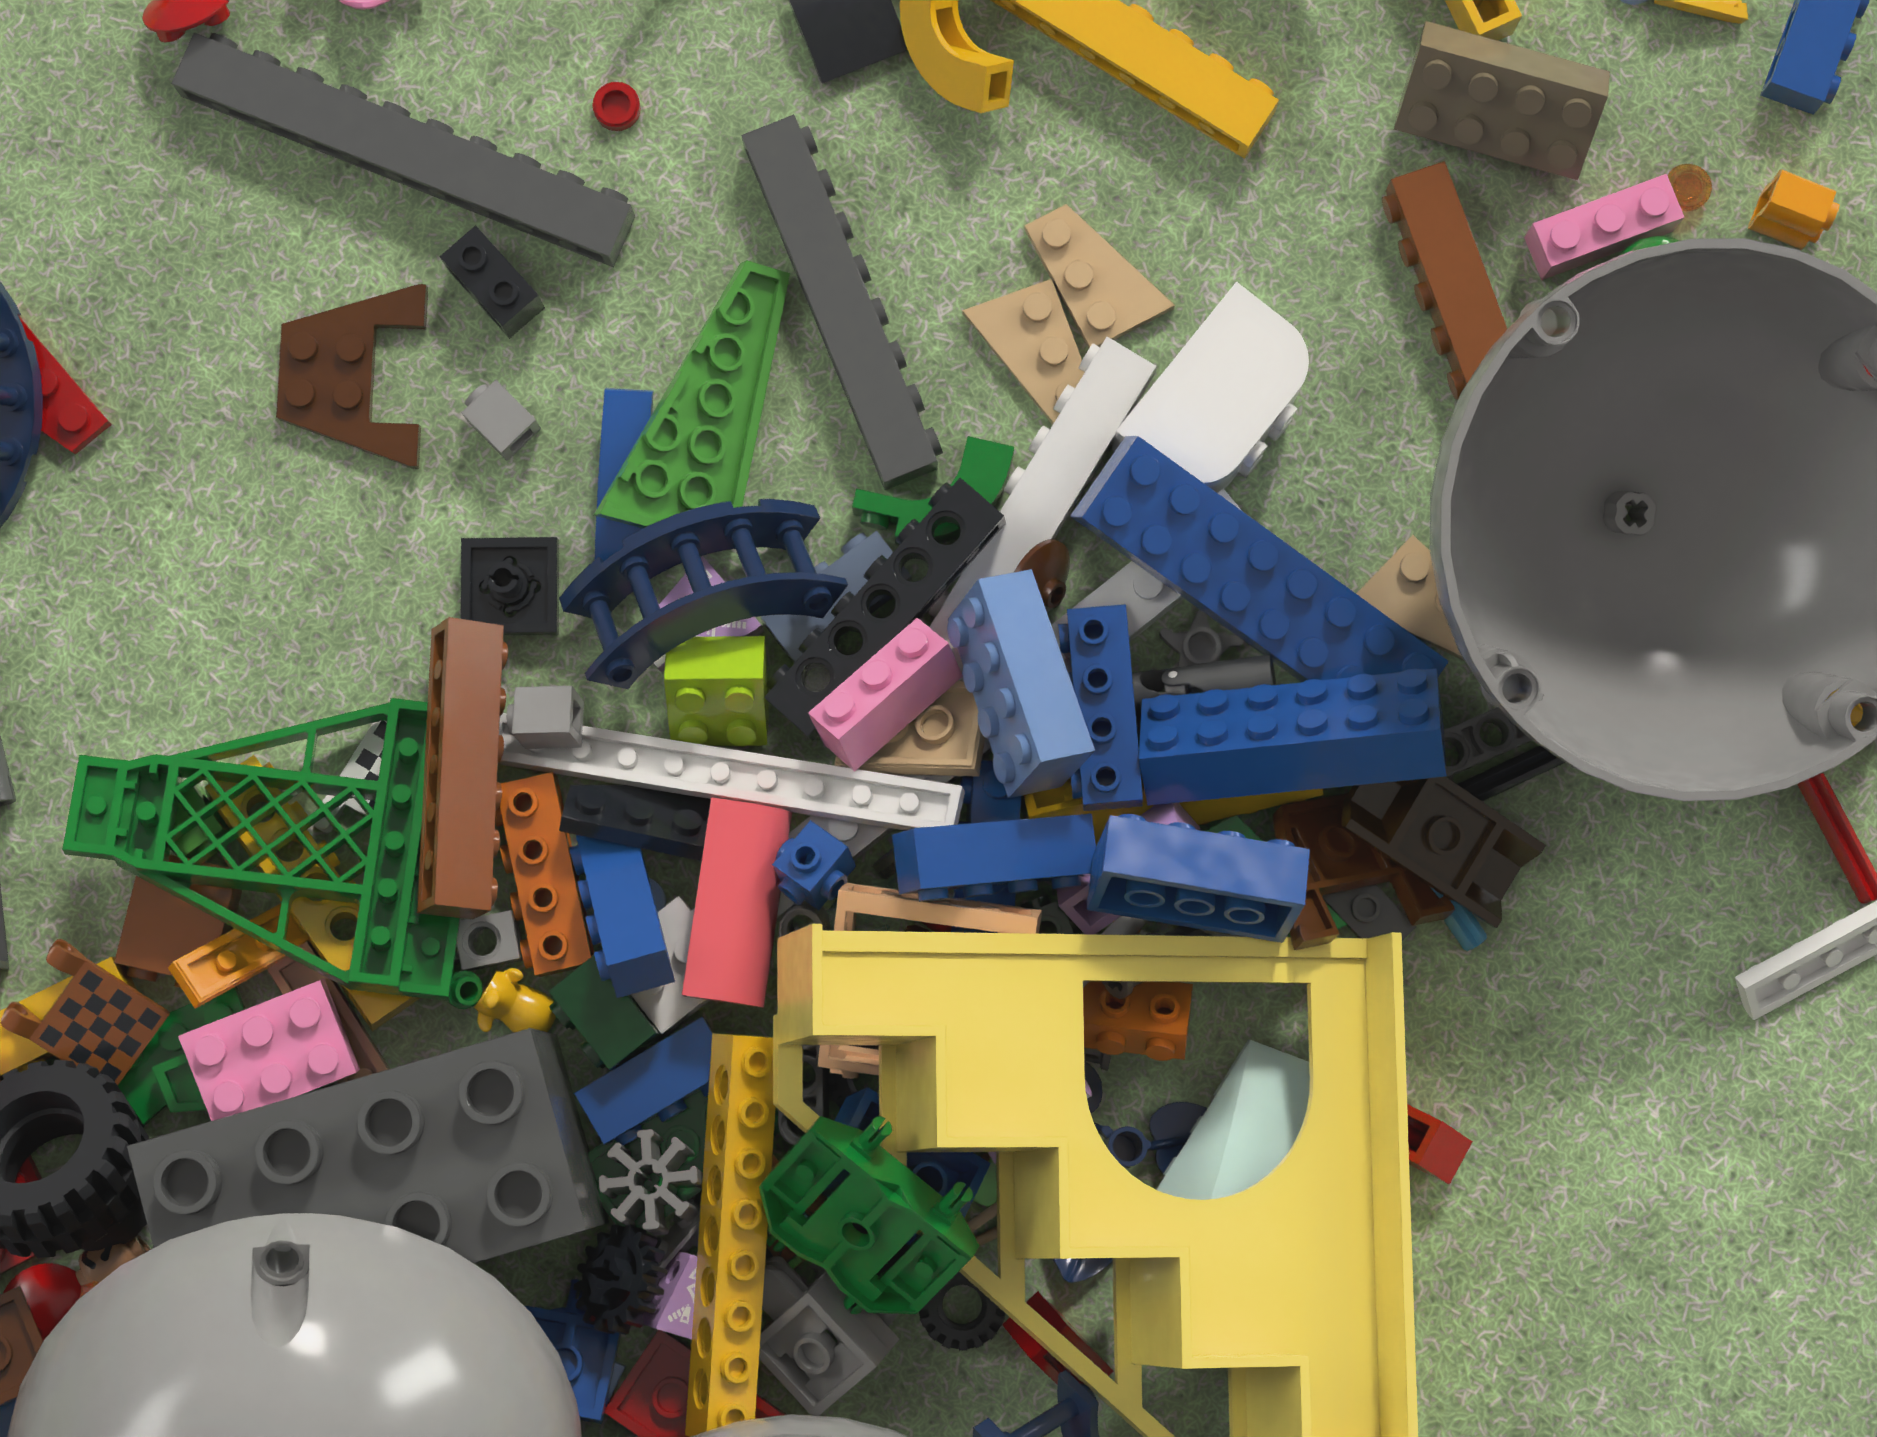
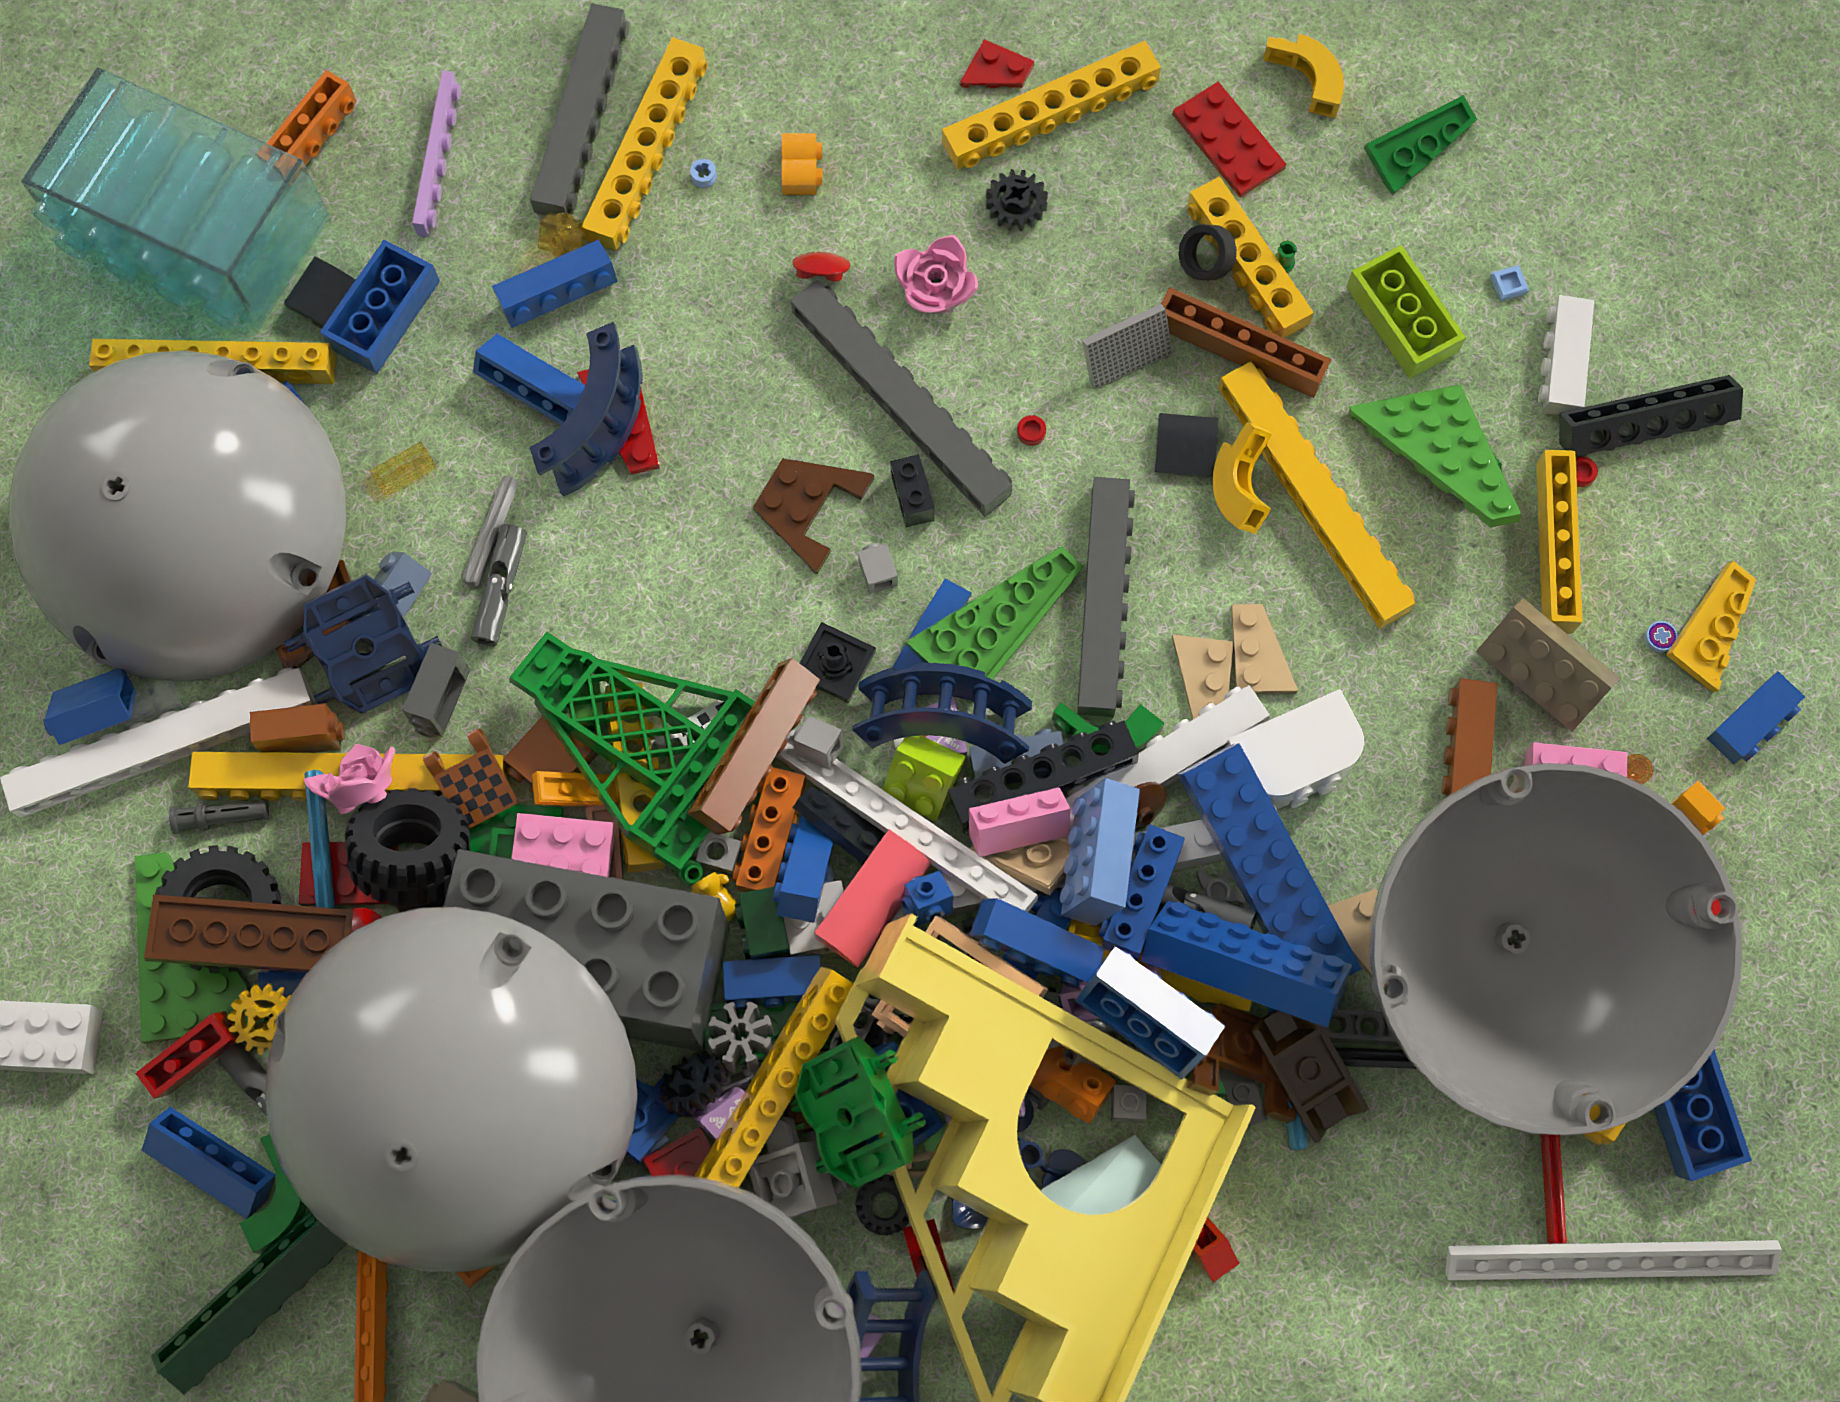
camera: 25 degrees right, 10 degrees down
(1222, 1005) = (1128, 1104): none -> light grey brick

